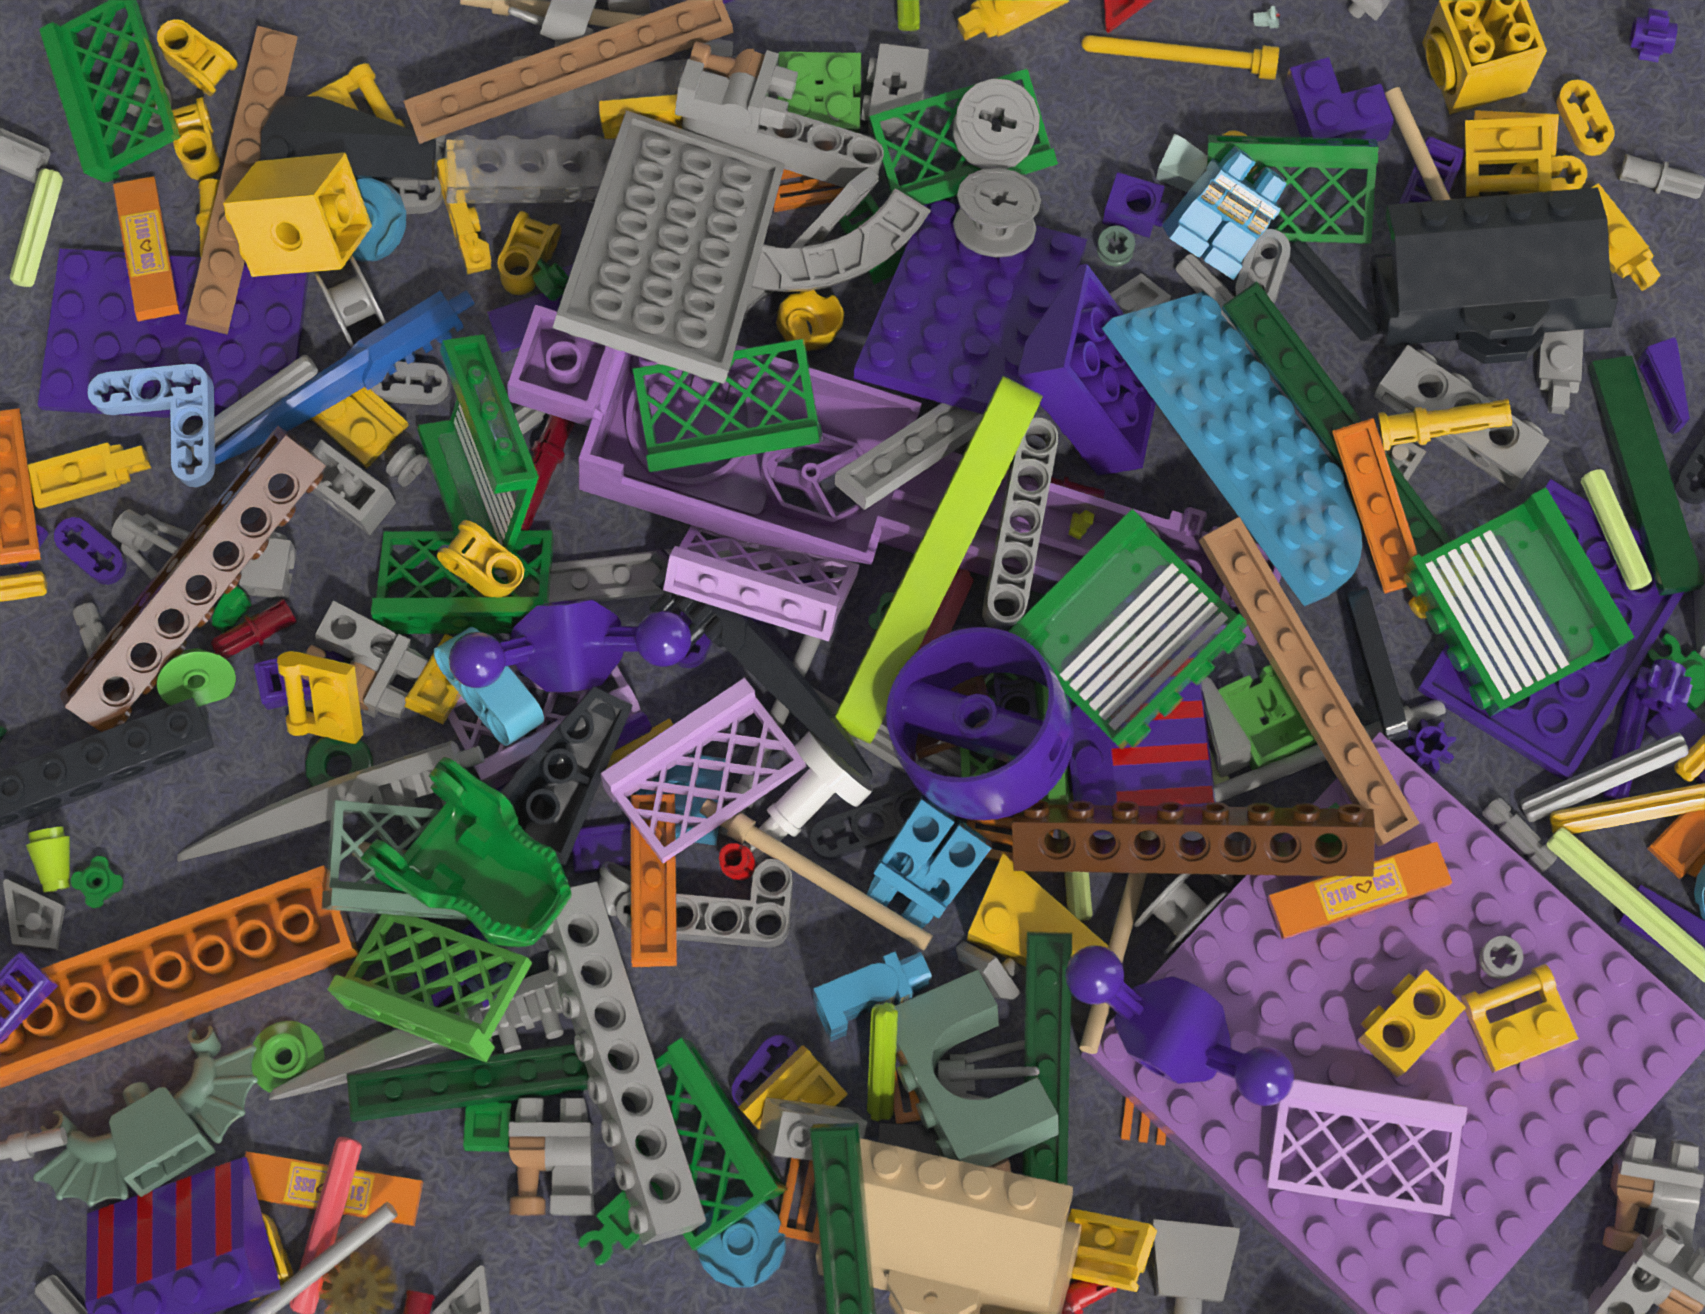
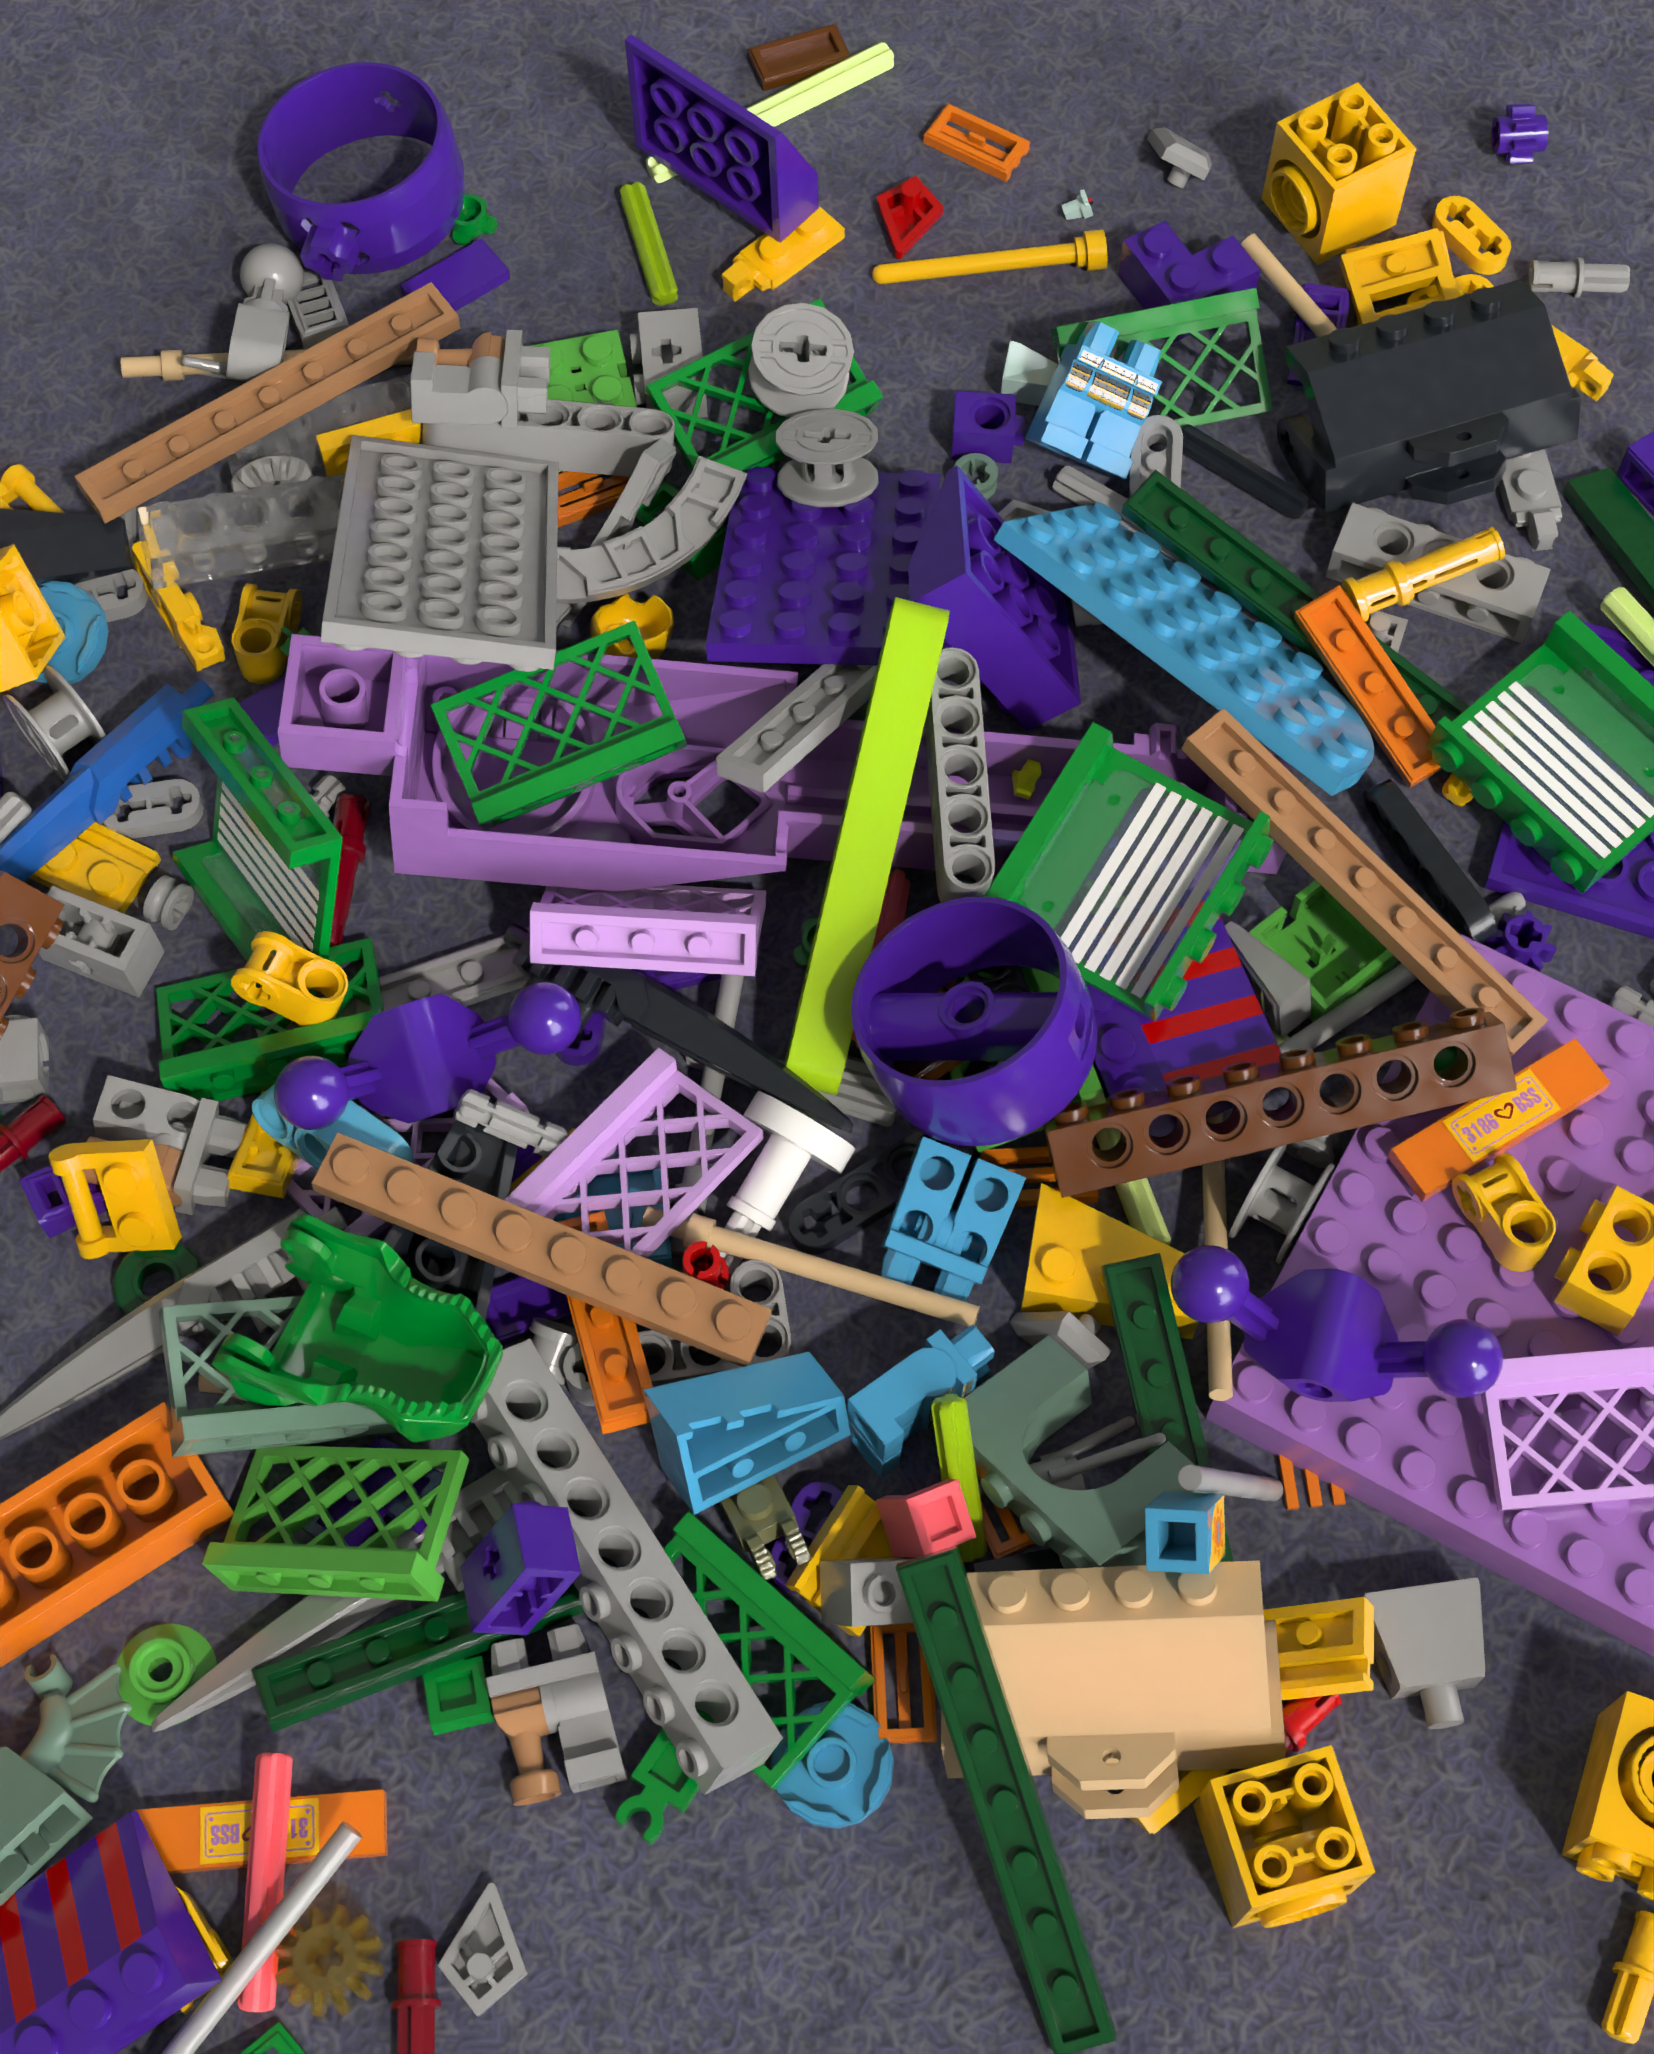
camera: 15 degrees left, 10 degrees down
(549, 1054) = (520, 1569): none -> dark purple brick
(558, 123) = (271, 469): none -> light grey gear
(619, 713) = (509, 1123): none -> light grey axle
(619, 820) = (542, 1250): none -> medium nougat plate
(730, 1037) = (761, 1516): none -> olive hinge
(736, 985) = (743, 1425): none -> dark azure wedge
(850, 1088) = (926, 1519): none -> coral panel
(1024, 1153) = (1185, 1532): none -> dark azure brick
(1074, 1120) = (1230, 1483): none -> light grey bar
(1338, 956) = (1505, 1201): none -> yellow piece

